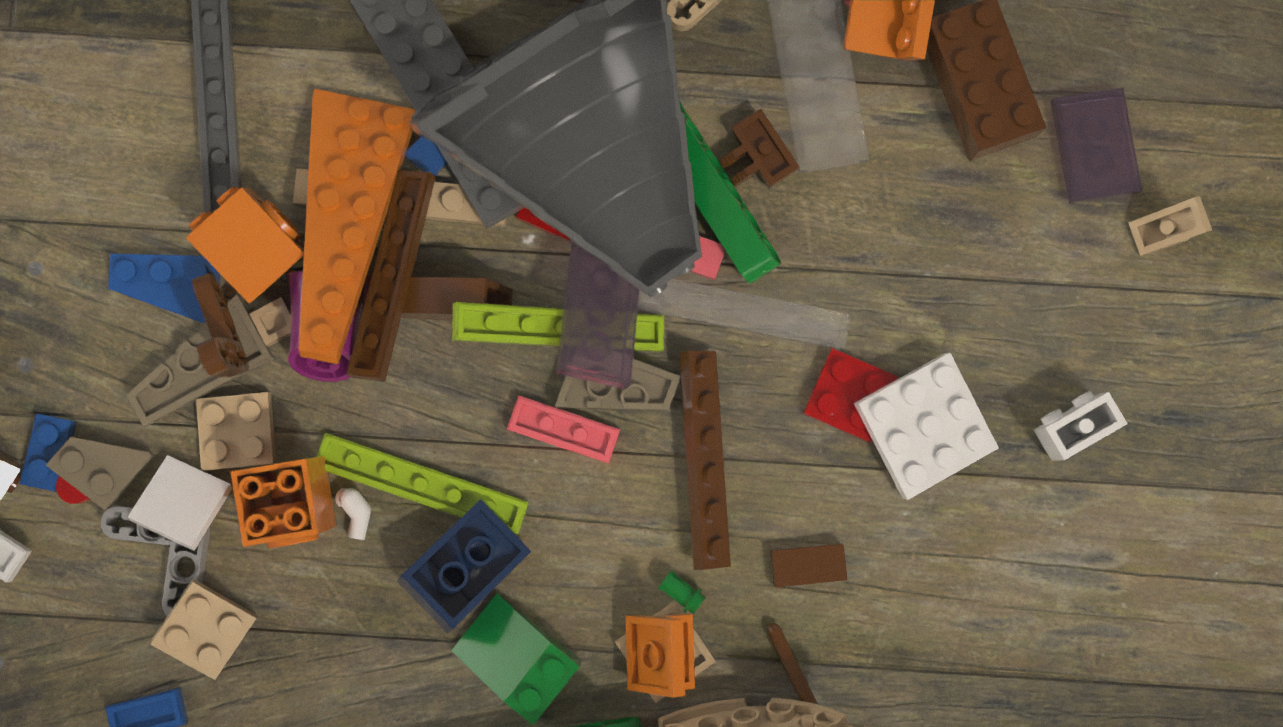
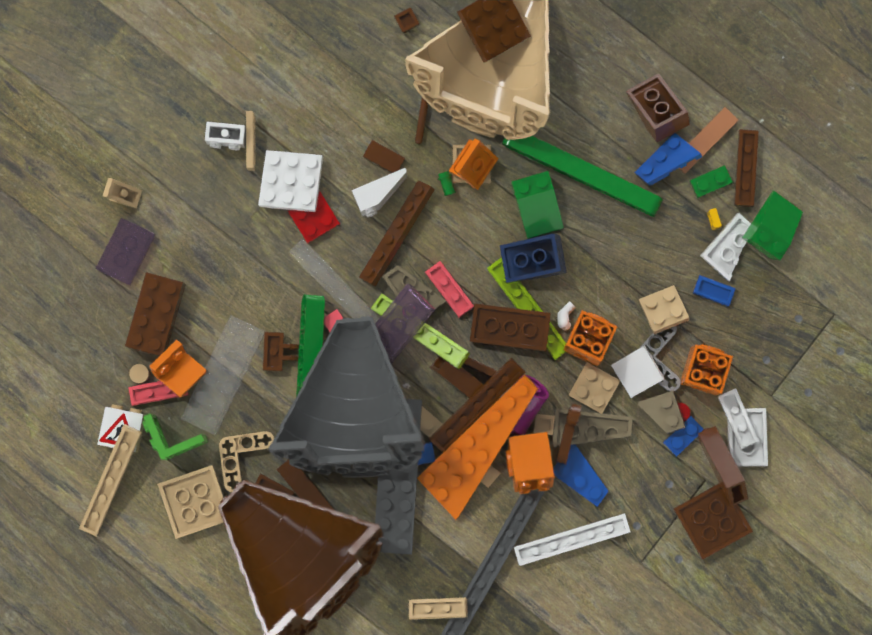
camera: 140 degrees left, 0 degrees up
(65, 579) = (706, 369): none -> orange brick
(116, 179) = (571, 539): none -> white plate
(426, 434) = (510, 327): none -> reddish brown plate
(427, 341) = (479, 367): none -> reddish brown tile
(780, 495) = (376, 193): none -> white slope
(1034, 446) = (250, 141): none -> tan tile

